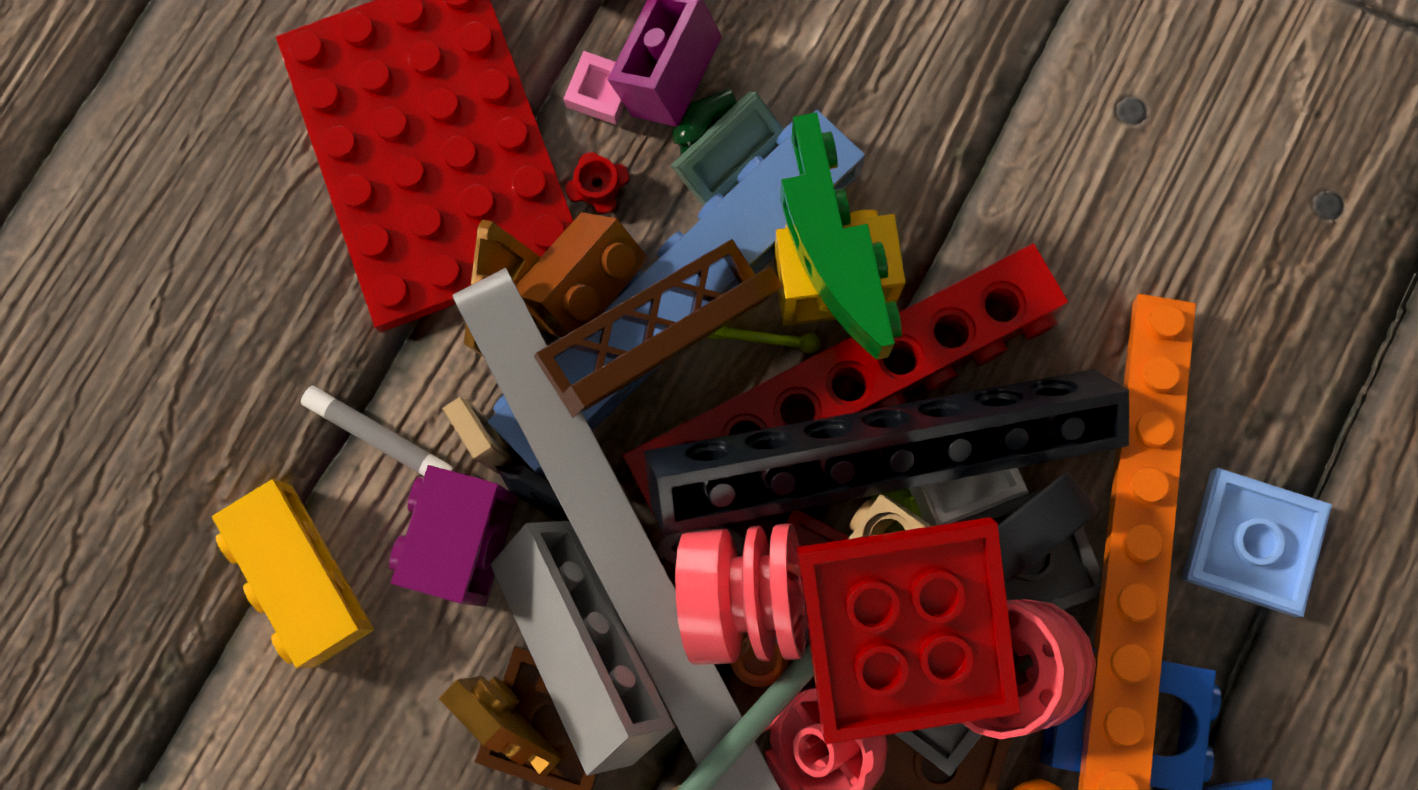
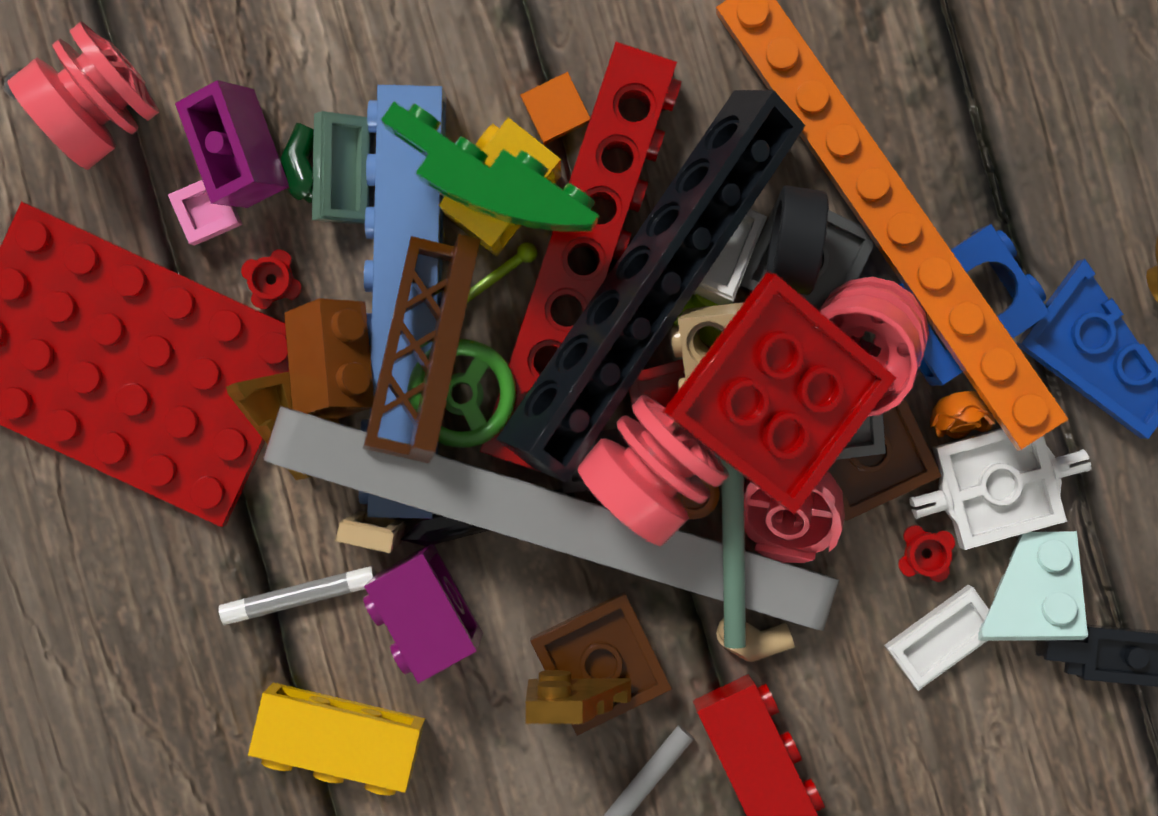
camera: 55 degrees left, 10 degrees up
(580, 647) = (575, 601): light grey brick -> none
(647, 415) = (480, 429): none -> bright green piece
(936, 255) = (555, 108): none -> orange tile
(1256, 542) = (942, 107): light blue tile -> none

